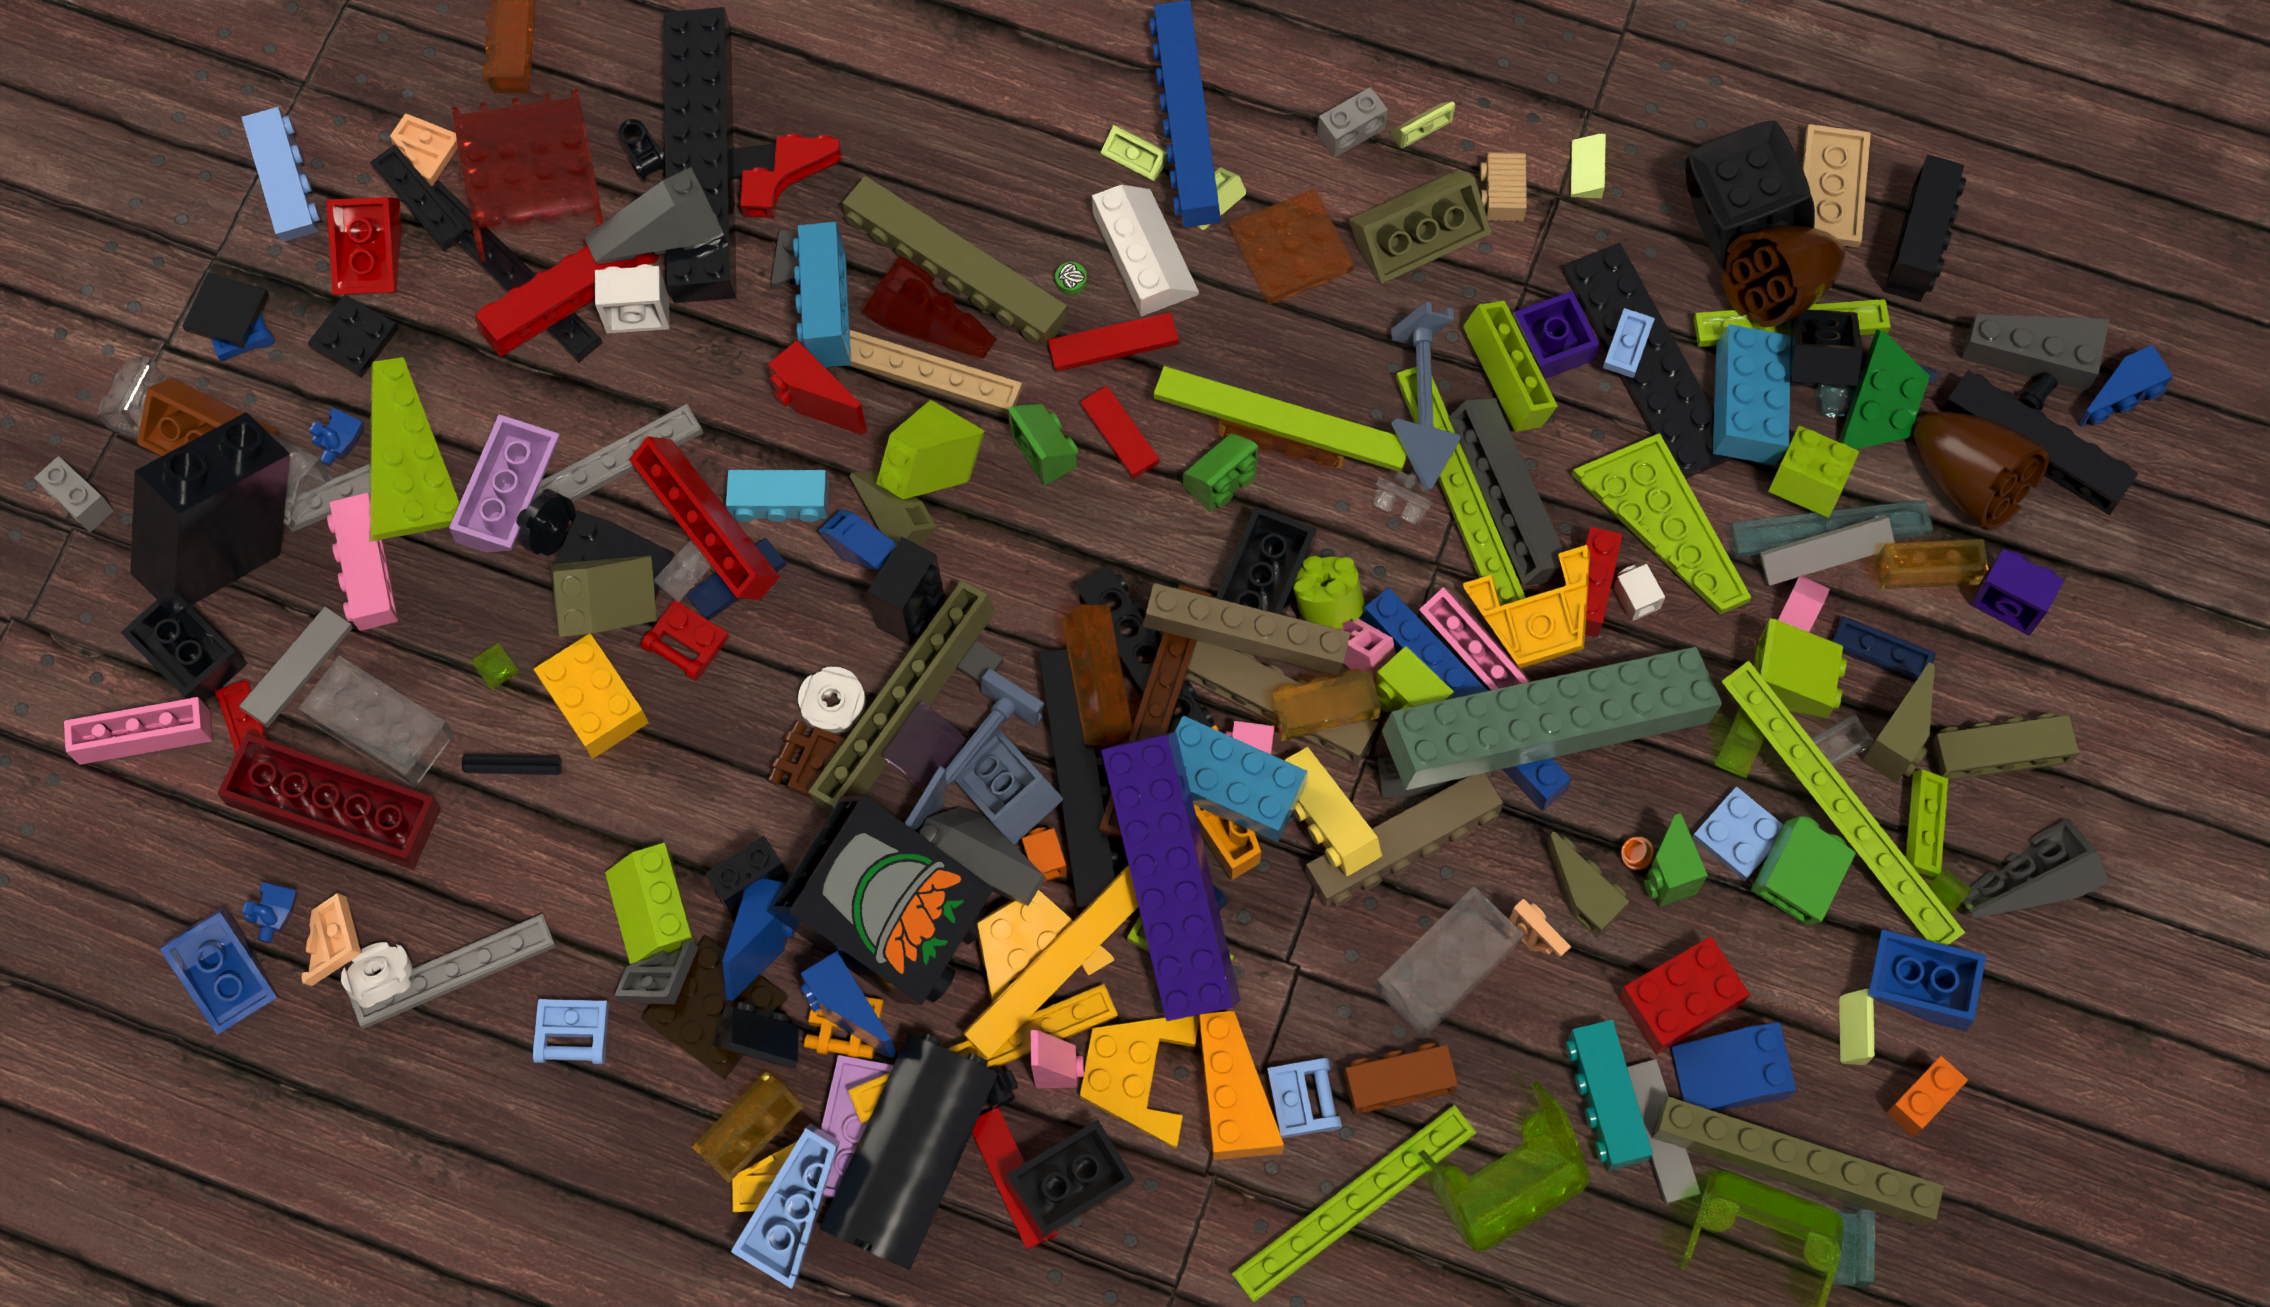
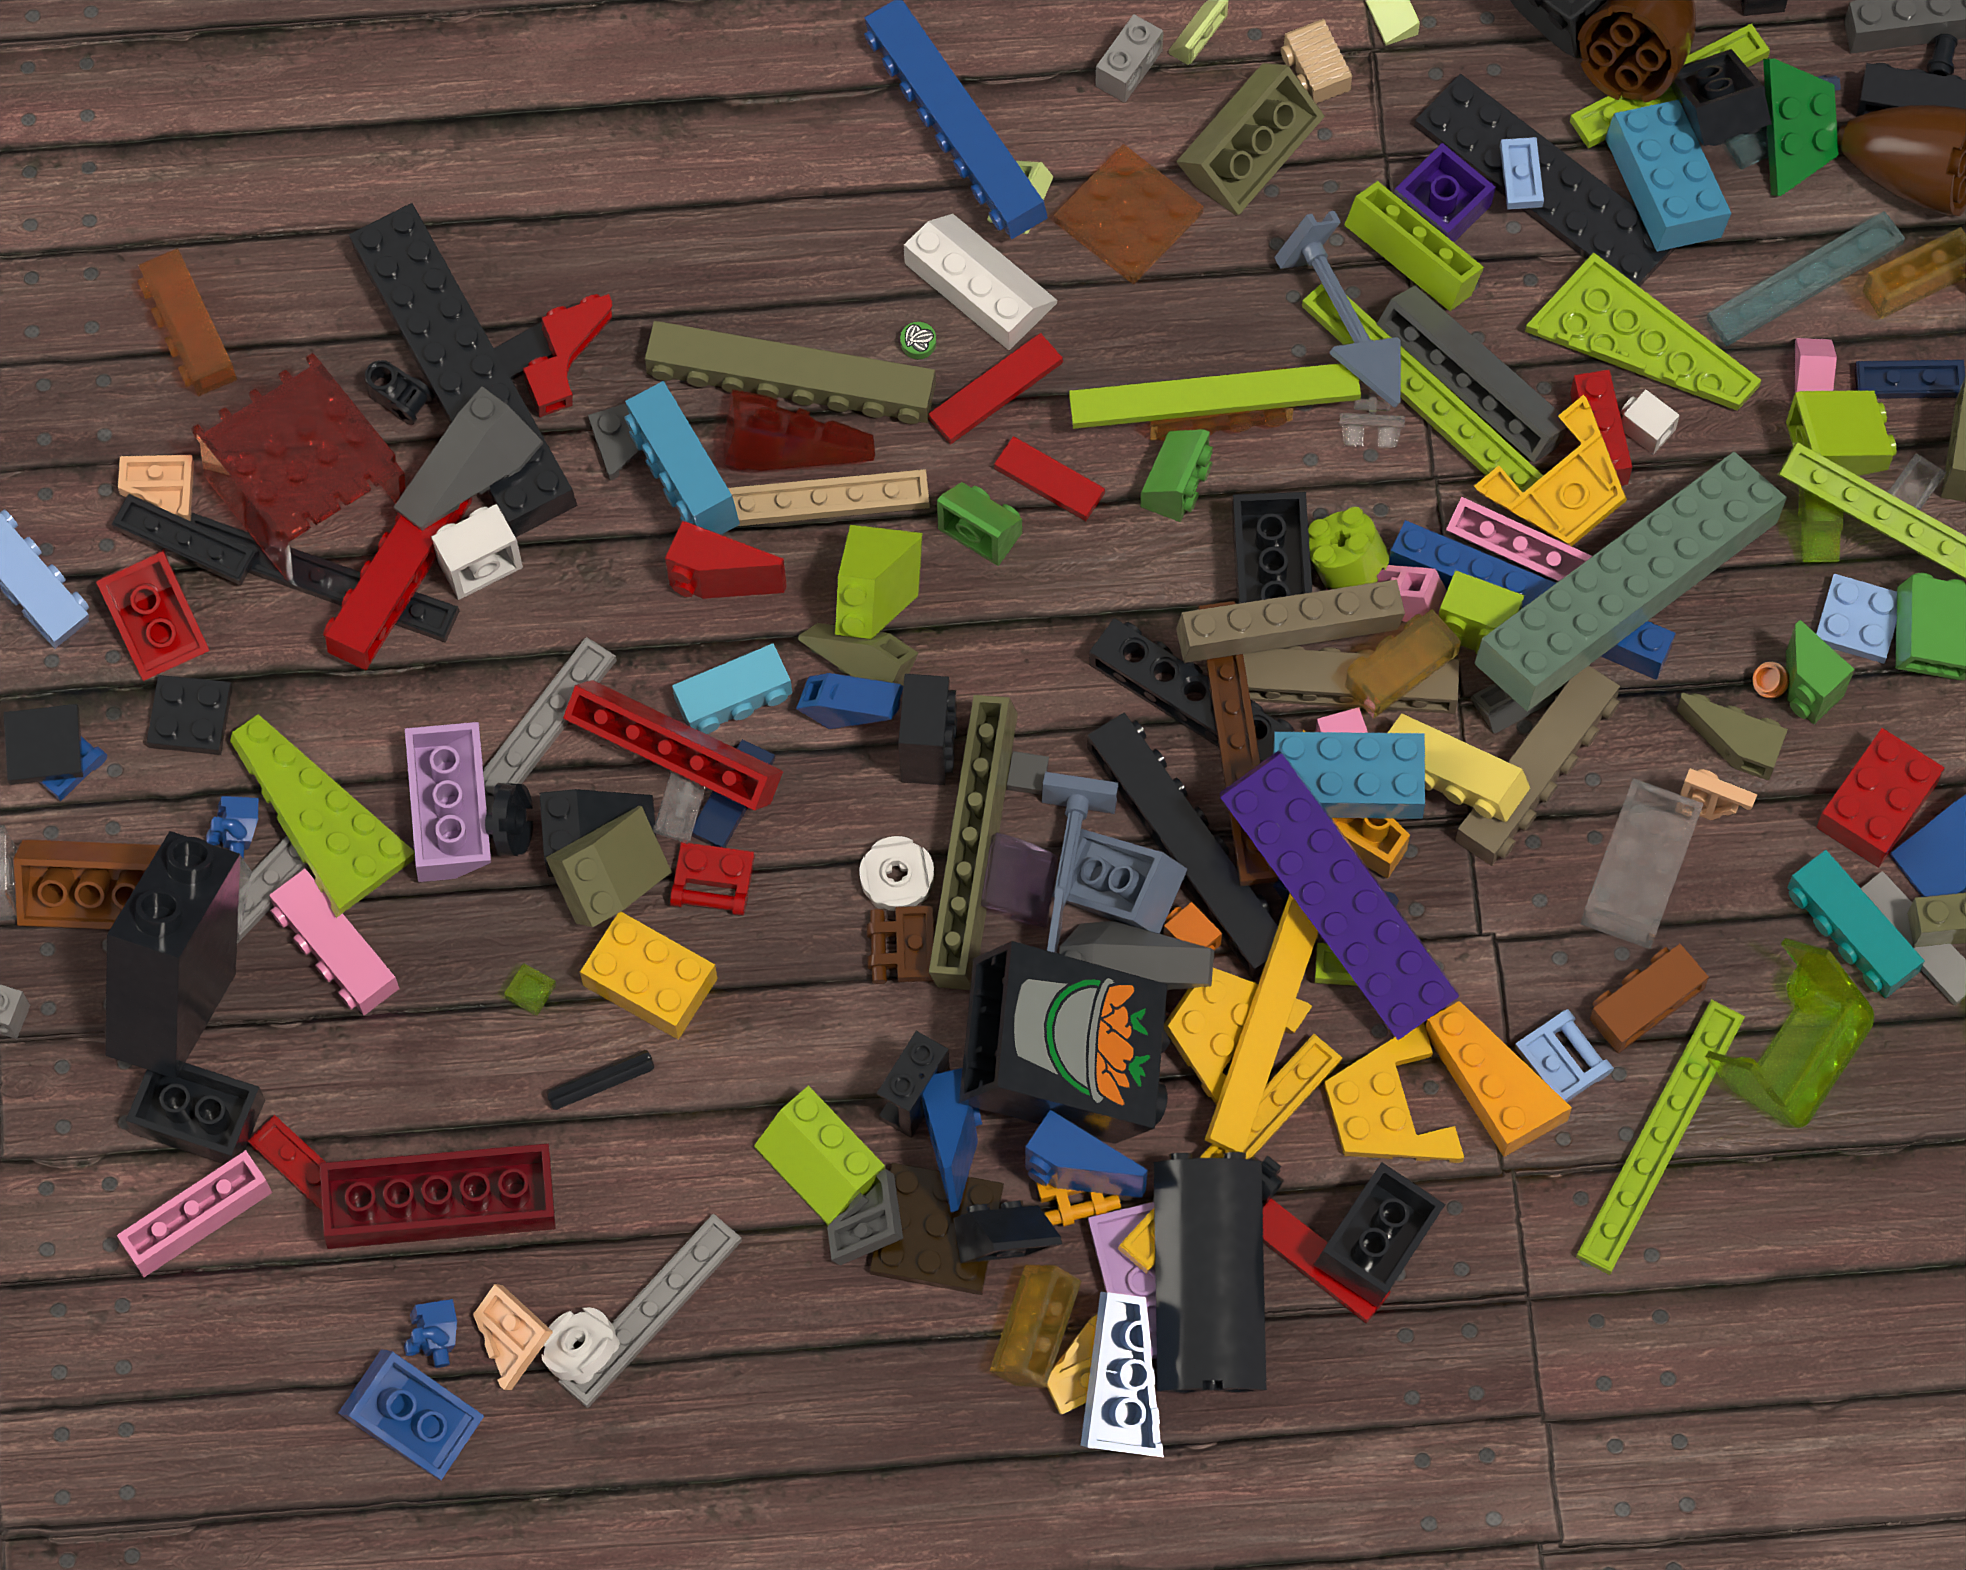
camera: 25 degrees left, 0 degrees up
(296, 667) = (321, 1079): light grey tile -> none
(376, 721) = (439, 1096): clear brick -> none
(571, 1019) = (800, 1303): light blue plate -> none
(1054, 1062) = (1307, 1129): bright pink slope -> none
(1097, 675) = (1160, 730): clear orange brick -> none
(1135, 152) = (917, 181): yellowish green slope -> none
(1814, 471) = (1765, 228): lime brick -> none
(1826, 550) = (1812, 302): light grey tile -> none

